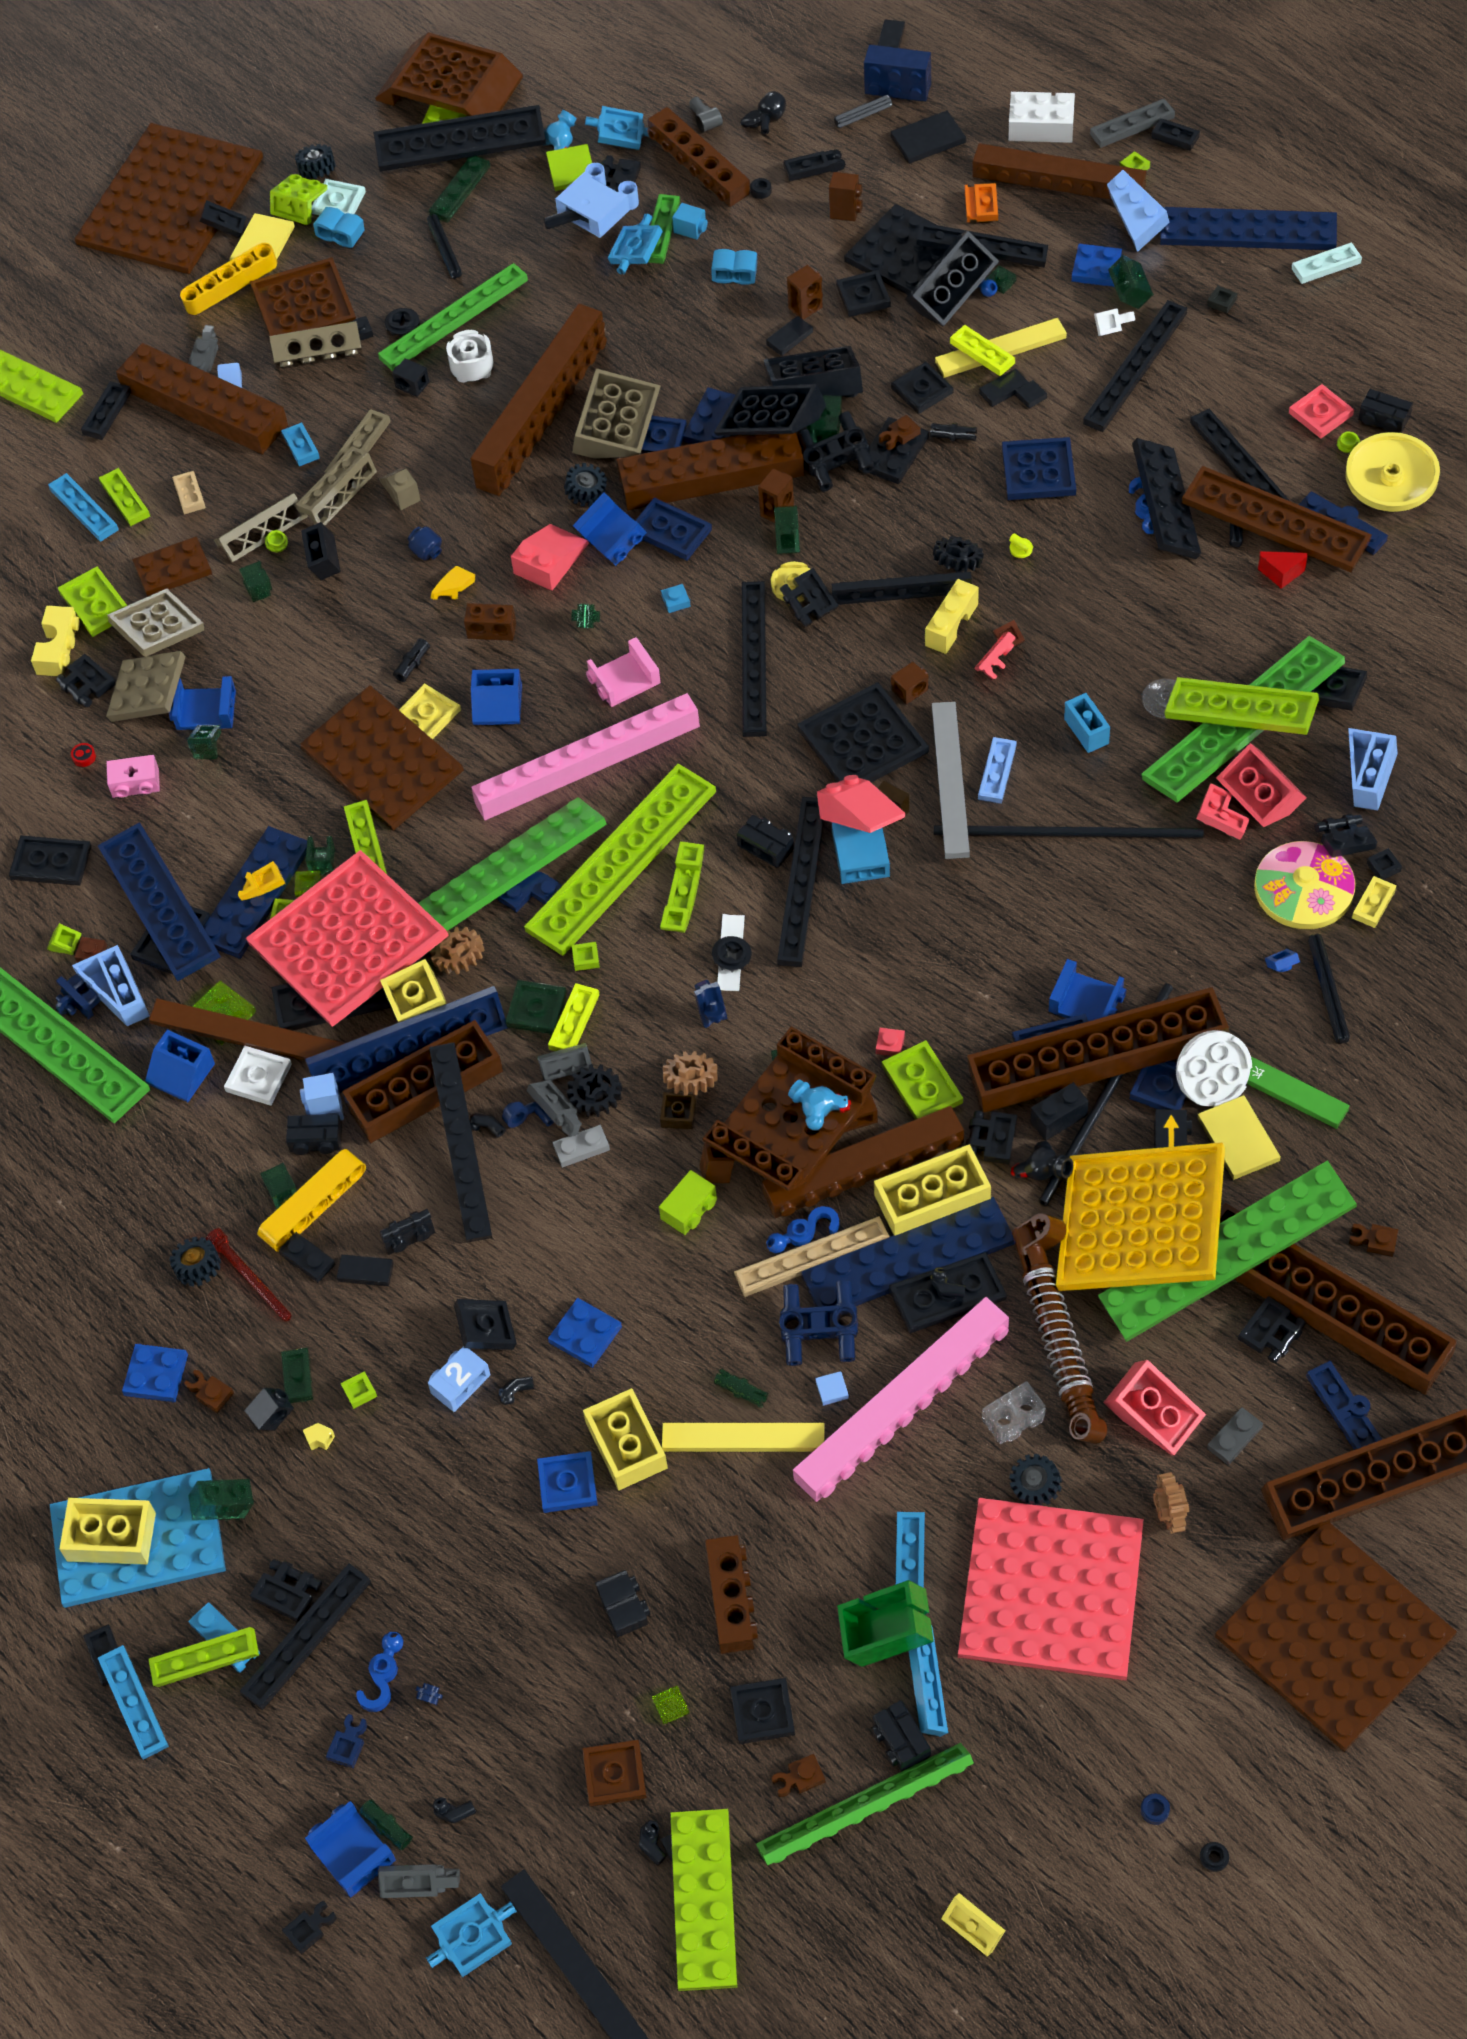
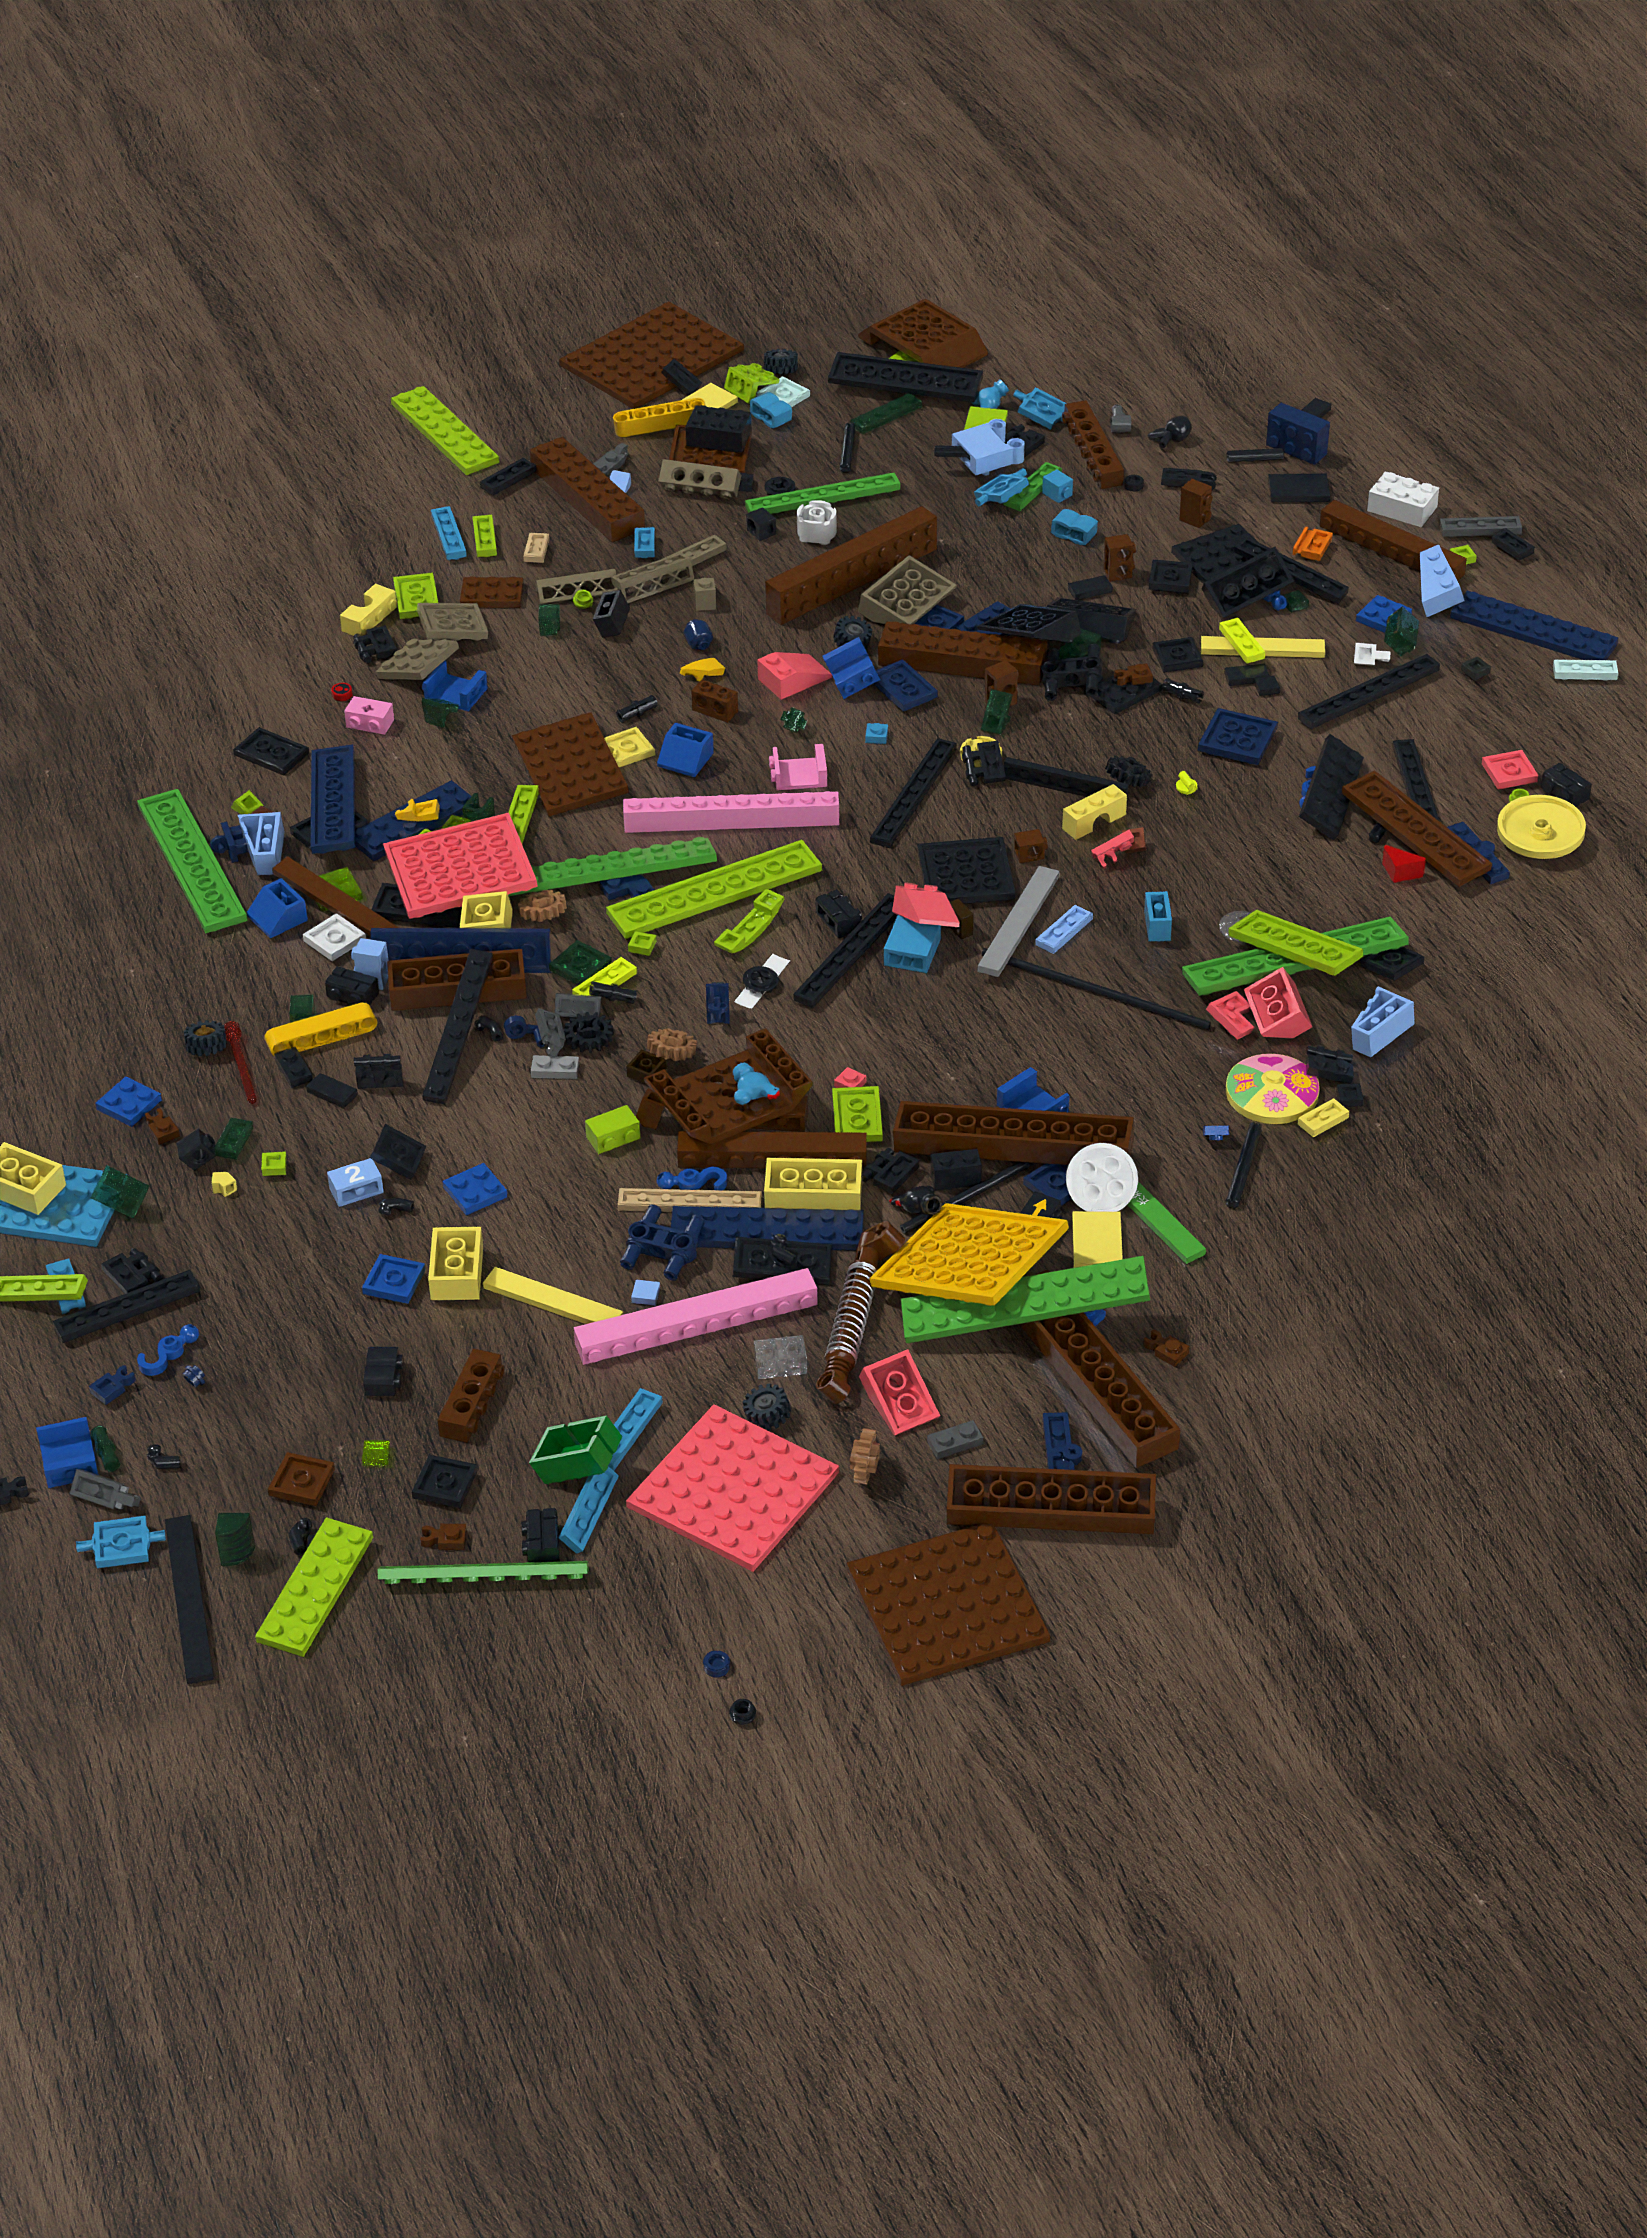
camera: 20 degrees right, 15 degrees down
(303, 274) = (718, 428): none -> black brick
(592, 1032) = (612, 992): none -> black pin
(593, 1883) = (234, 1538): none -> clear green brick
(741, 1388) = (572, 1266): clear green pin -> none
(973, 1924) = (514, 1681): light yellow plate -> none
(1264, 1325) = (1031, 1371): black plate -> none

